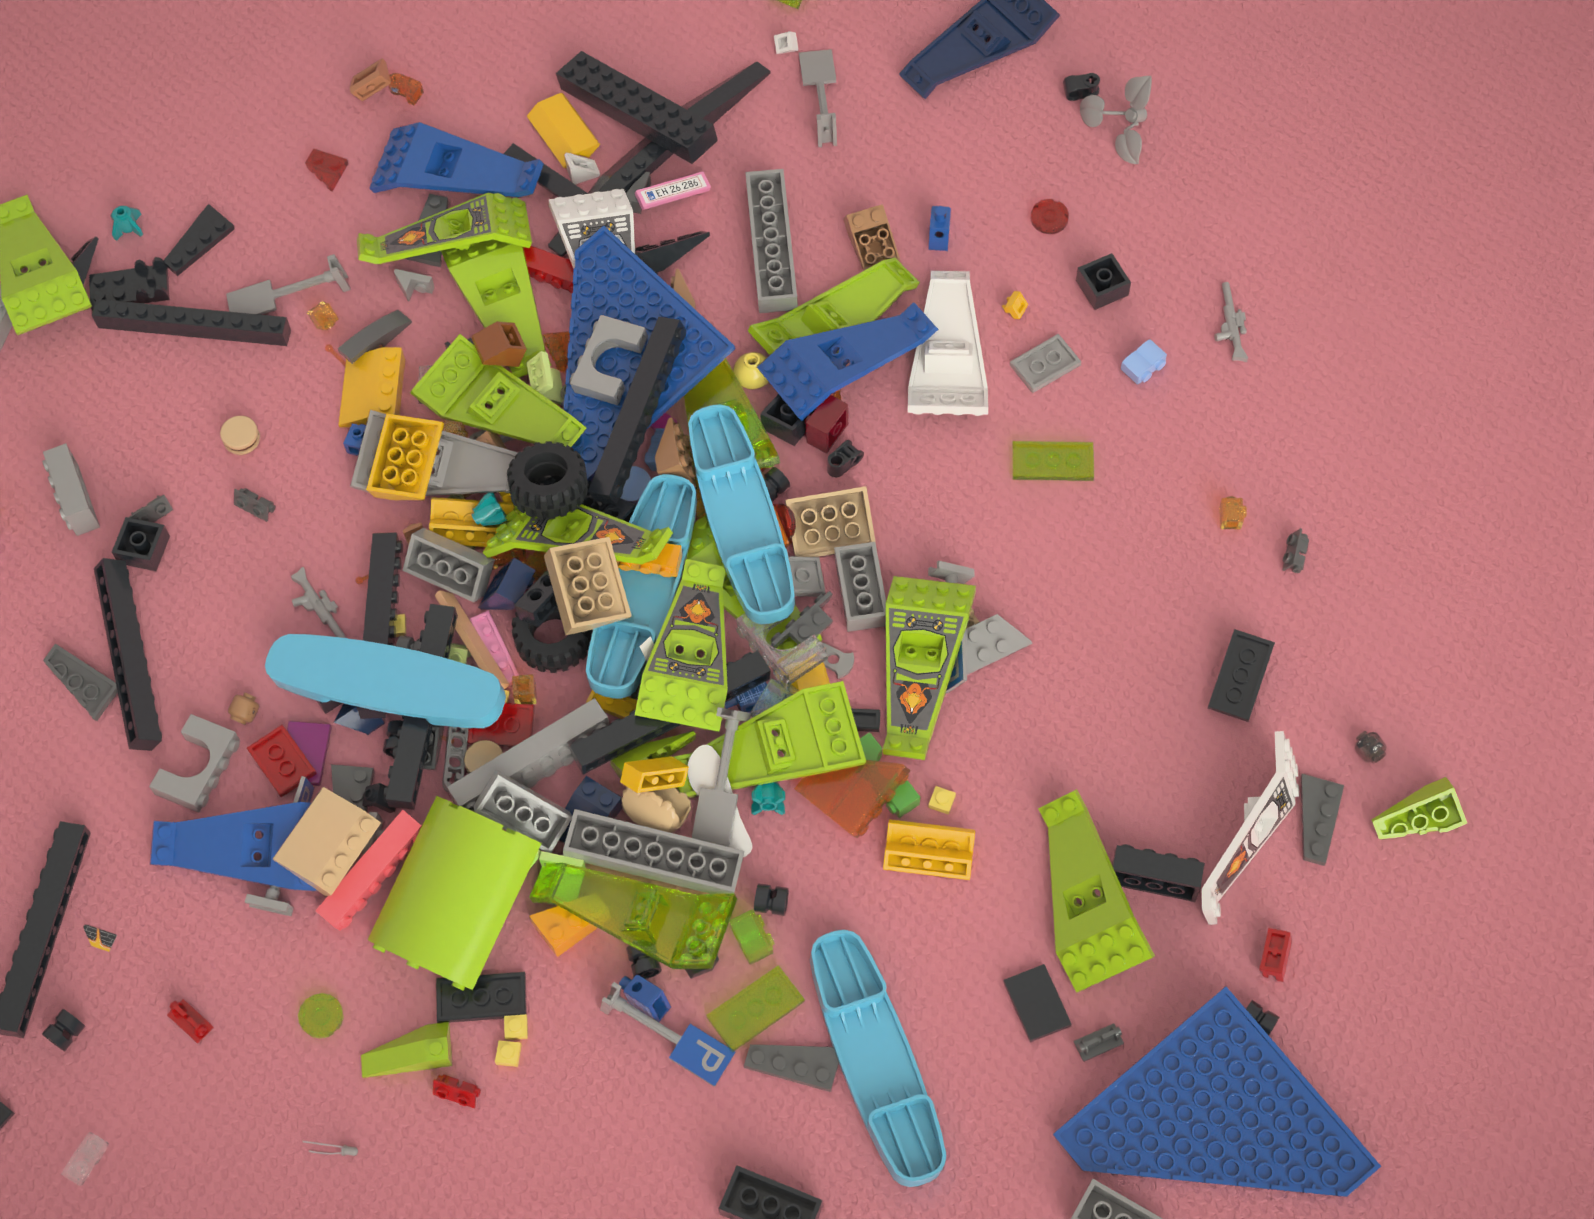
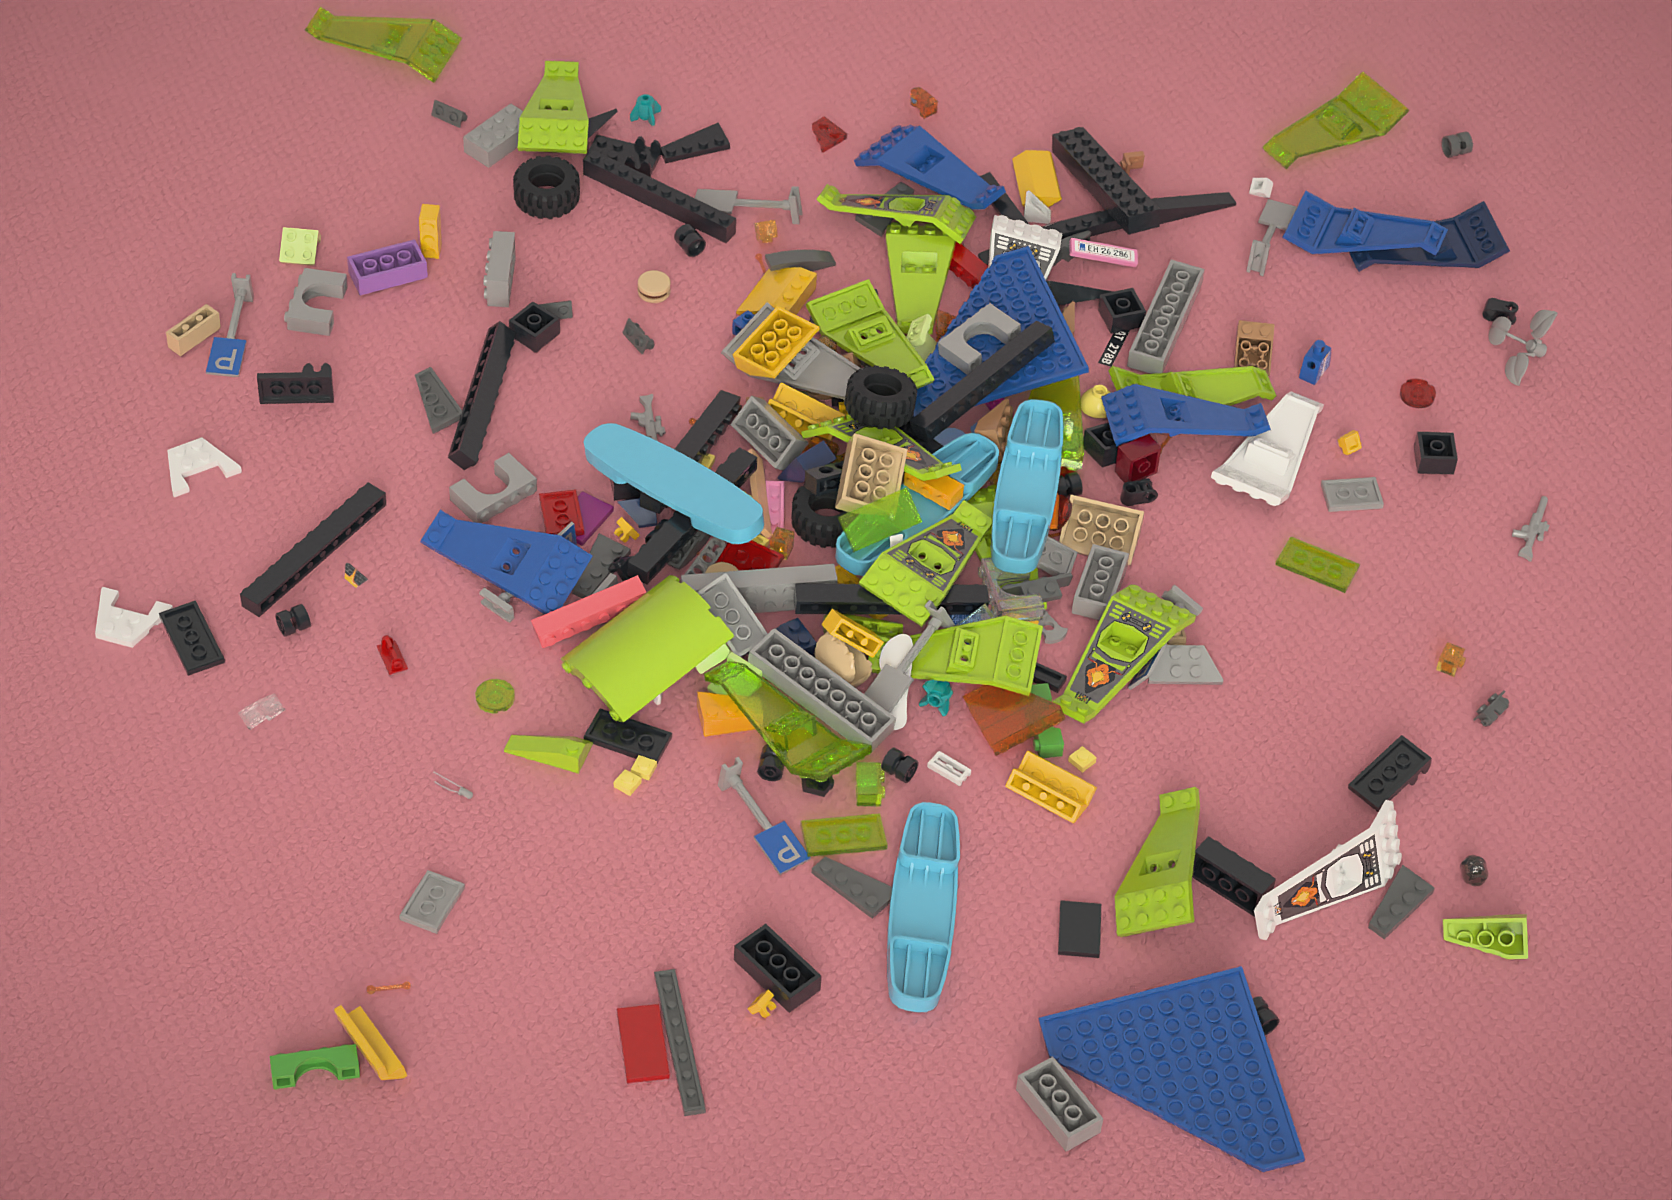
camera: 20 degrees right, 15 degrees down
(62, 346) = (546, 172): none -> black tyre
(243, 708) = (551, 468): medium nougat head -> none
(250, 362) = (689, 240): none -> black wheel
(326, 841) = (566, 572): tan slope -> none
(359, 746) = (627, 529): none -> yellow tile
(370, 80) = (897, 86): nougat tile -> none
(412, 281) = (854, 236): light grey slope -> none
(446, 1088) = (569, 788): red hinge -> none
(488, 511) = (822, 407): teal brick -> none
(500, 345) = (897, 299): dark orange slope -> none
(619, 630) = (880, 519): none -> clear neon green tile
(645, 997) = (760, 786): blue torso -> none
(646, 68) = (1132, 160): none -> nougat bracket
(724, 251) = (1121, 310): none -> black brick
(733, 289) = (1113, 348): none -> black sticker
(818, 883) = (947, 770): none -> white tile
(884, 61) = (1331, 229): none -> blue wing
(1099, 1042) = (1116, 976): dark grey hinge -> none
(1143, 362) = (1437, 524): light blue brick -> none
(1276, 954) = (1303, 978): red hinge -> none

